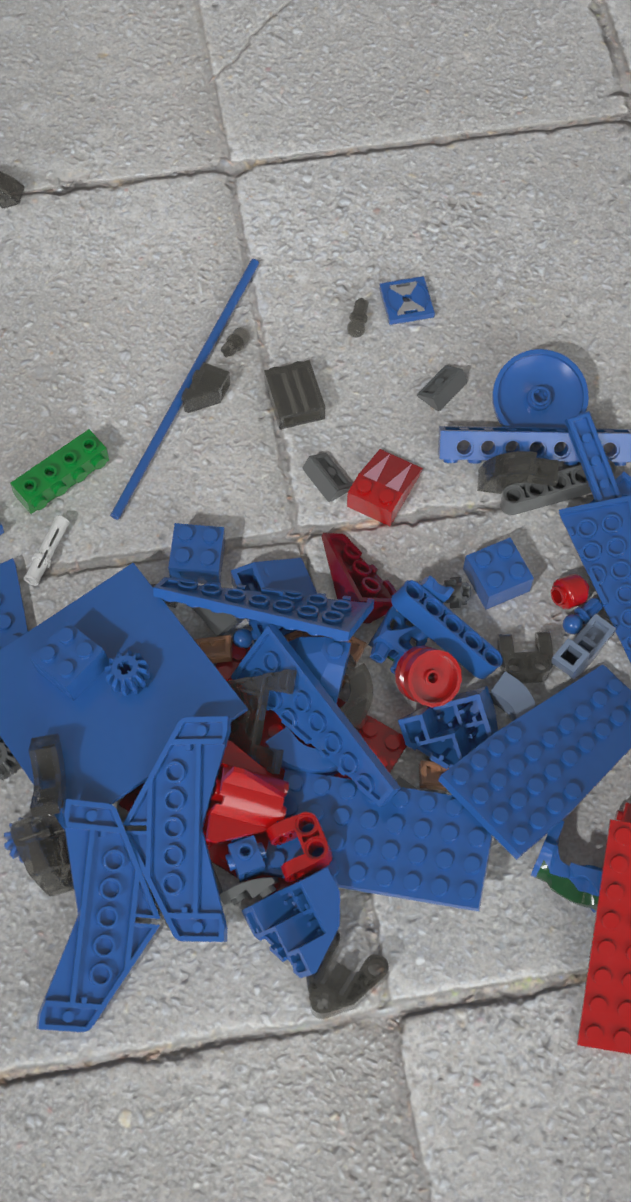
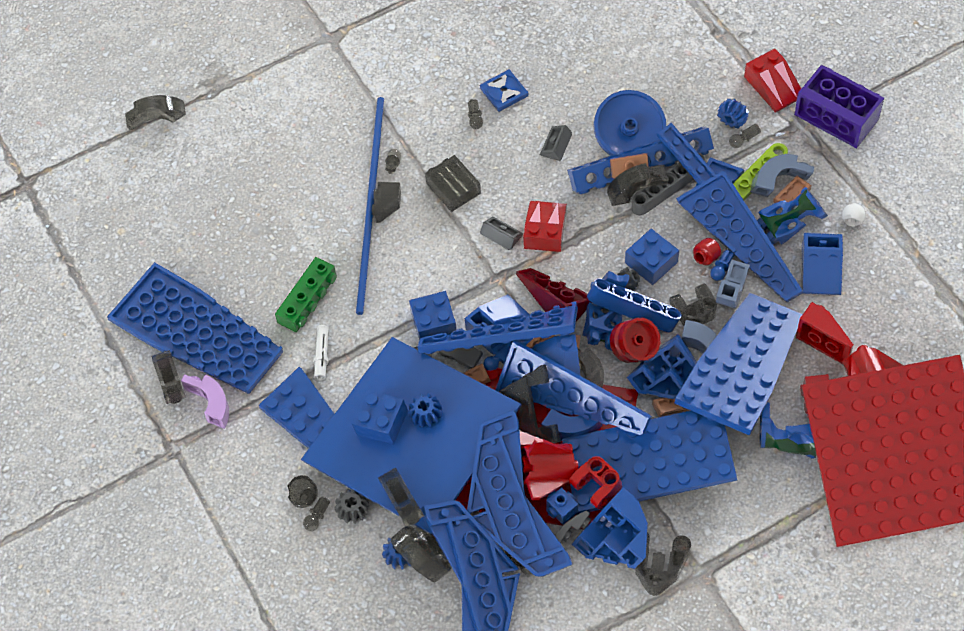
camera: 15 degrees left, 5 degrees down
(508, 443) = (622, 164): none -> nougat plate

